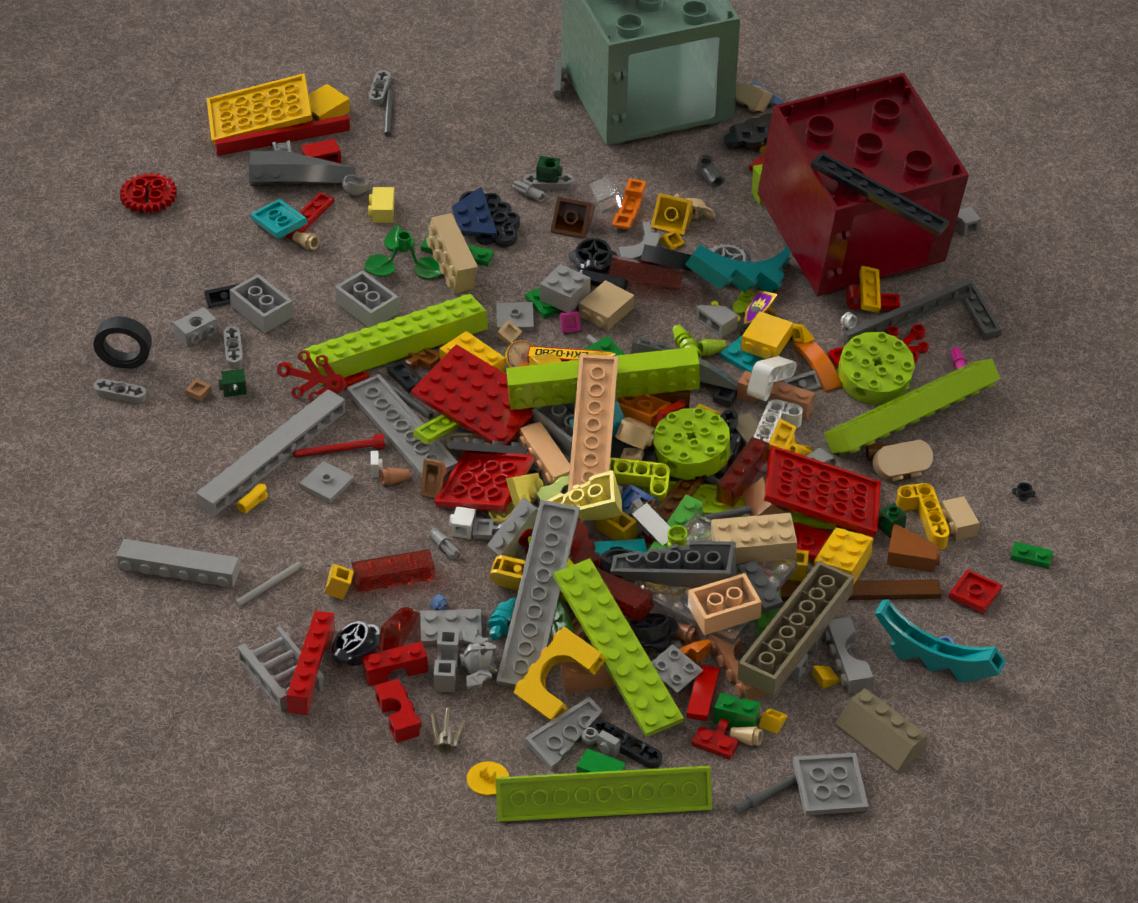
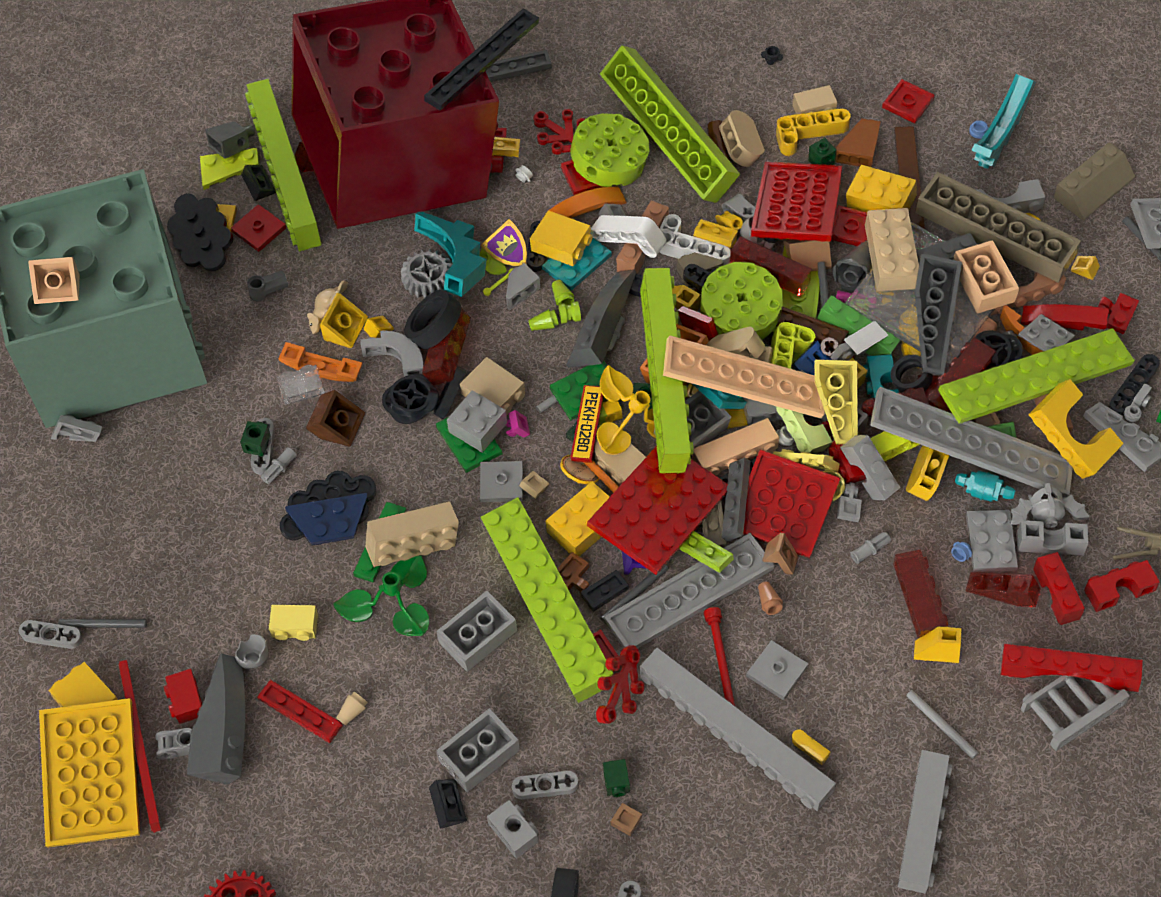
camera: 85 degrees left, 15 degrees up
(279, 218) = (314, 739): teal plate -> none
(354, 642) = (1020, 610): black piece -> none
(376, 464) = (753, 617): white plate -> none
(462, 522) = (841, 527): white brick -> none
(677, 535) = (893, 315): lime wheel -> none
(738, 713) = (1090, 286): green piece -> none
(748, 735) = (1113, 282): tan cone -> none
(801, 334) = (551, 207): yellow slope -> none
(913, 310) = (524, 123): dark grey plate -> none
(958, 359) = (589, 88): dark pink axle -> none
(1031, 555) = (854, 57): green plate -> none

